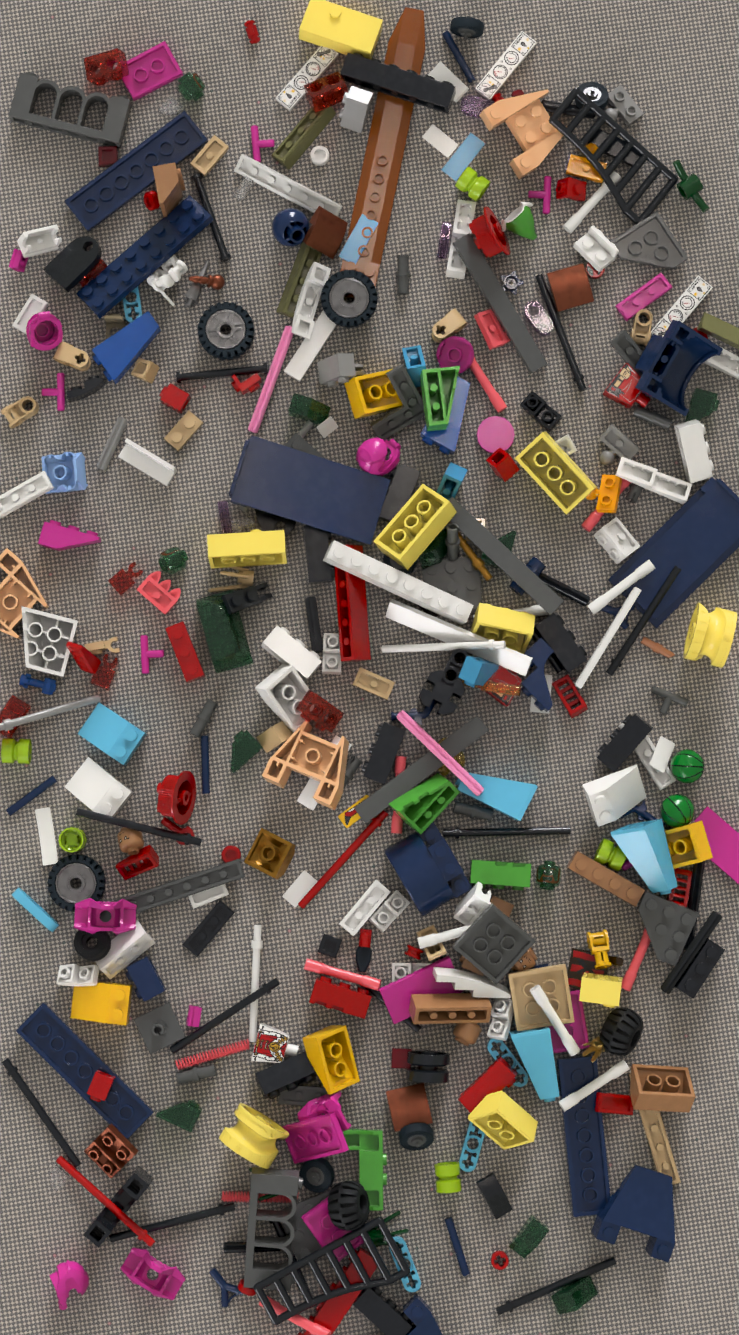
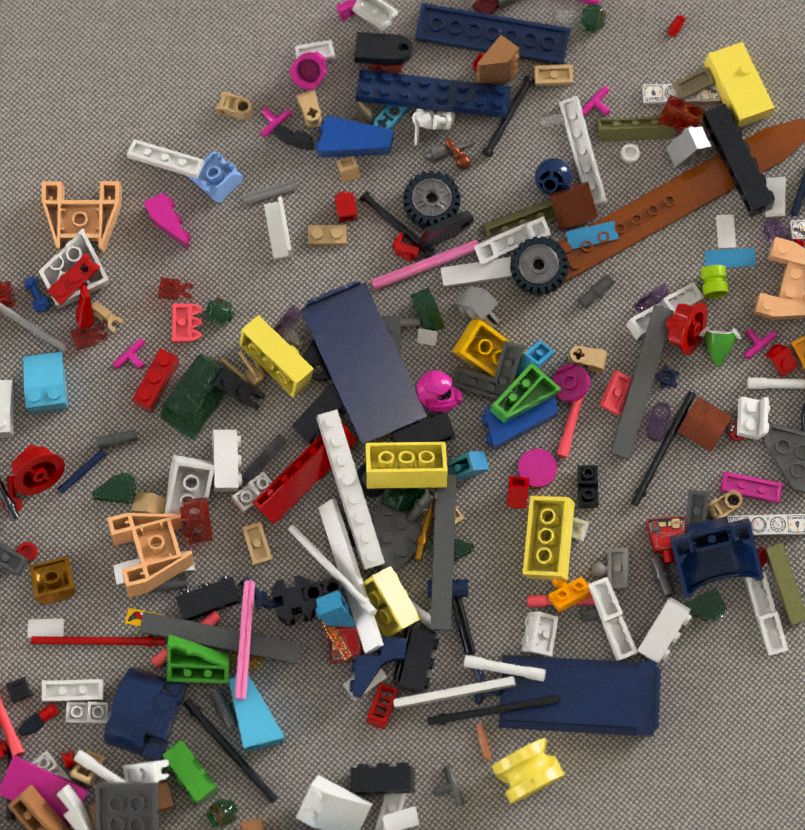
camera: 55 degrees right, 10 degrees down
(56, 647) = (73, 279): none -> red plate
(261, 342) = (445, 230): none -> black tile
(309, 61) = (693, 84): none -> dark tan tile

